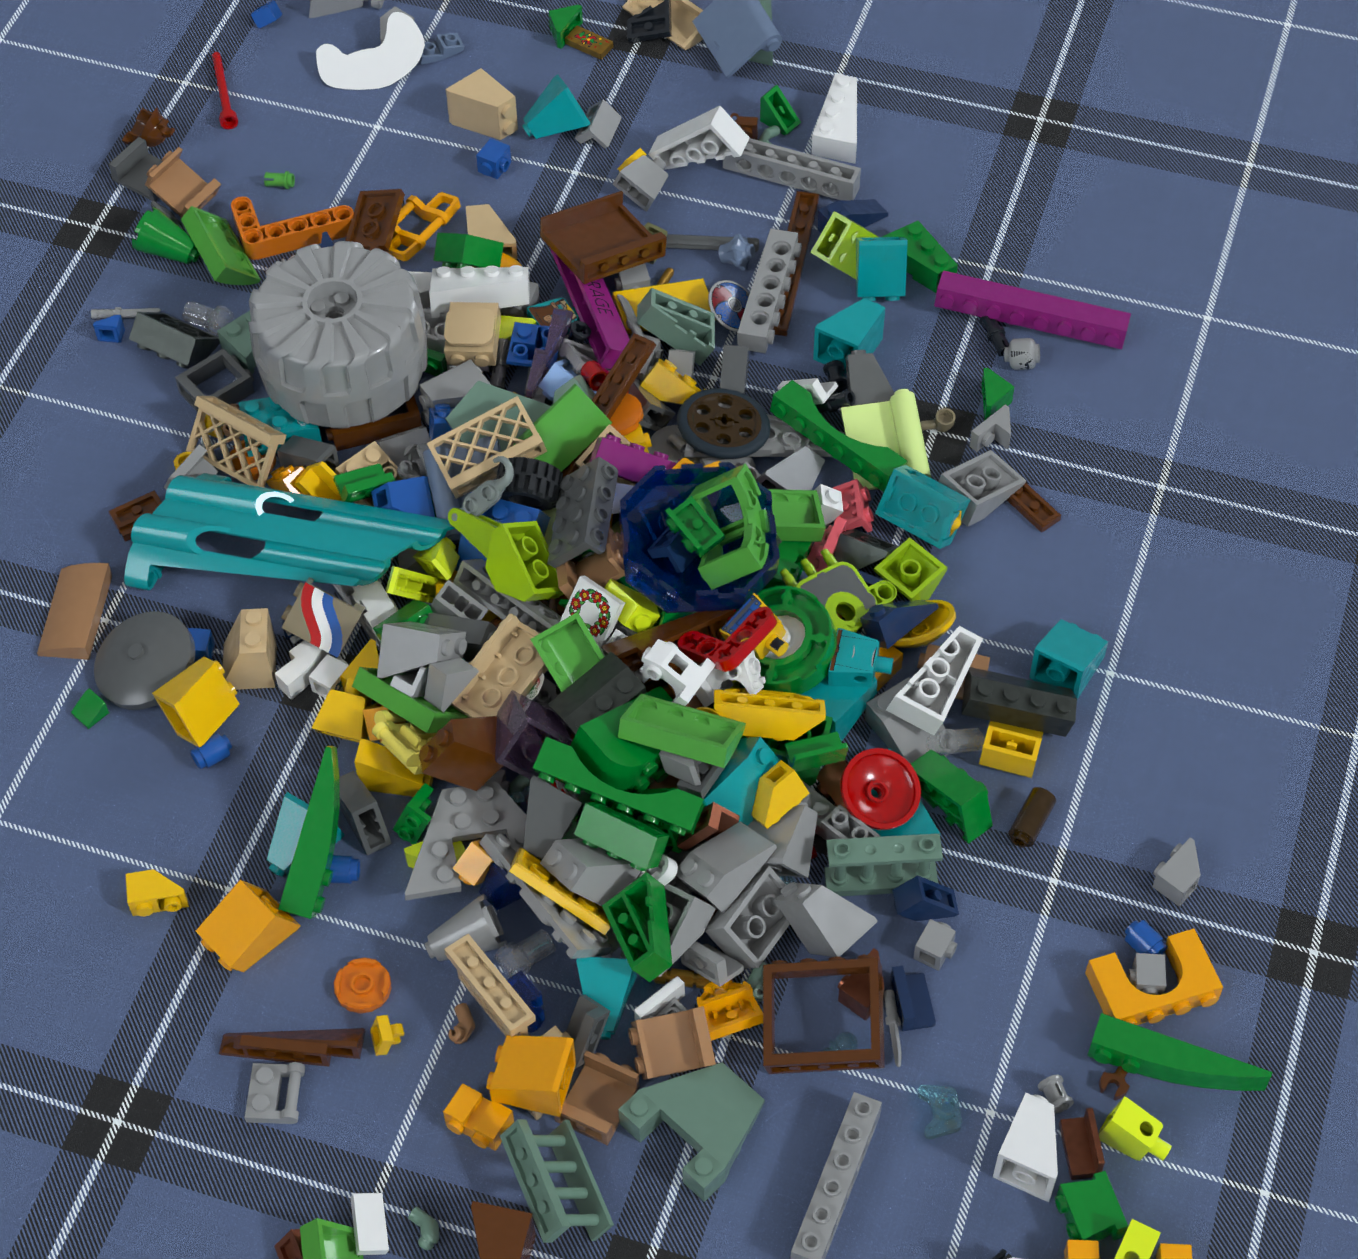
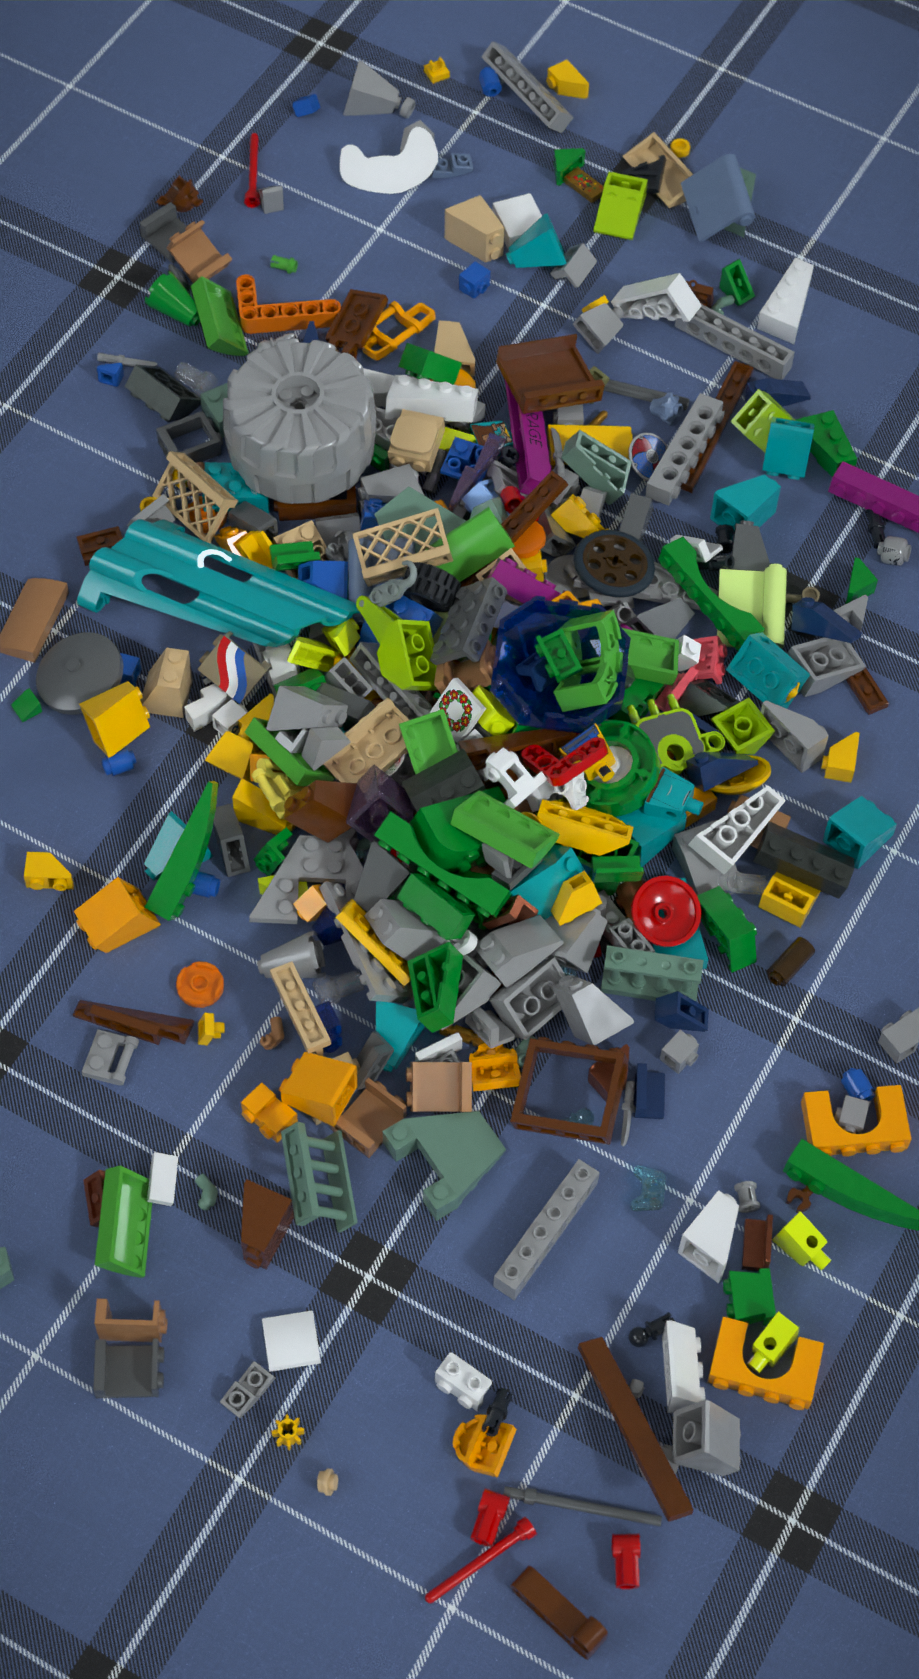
camera: 10 degrees right, 5 degrees up
(250, 115) = (271, 199): none -> light grey slope
(526, 84) = (516, 216): none -> white brick
(633, 55) = (620, 205): none -> lime slope
(963, 440) = (820, 620): none -> dark blue slope
(971, 569) = (796, 735): none -> light grey slope
(1027, 585) = (841, 759): none -> yellow slope

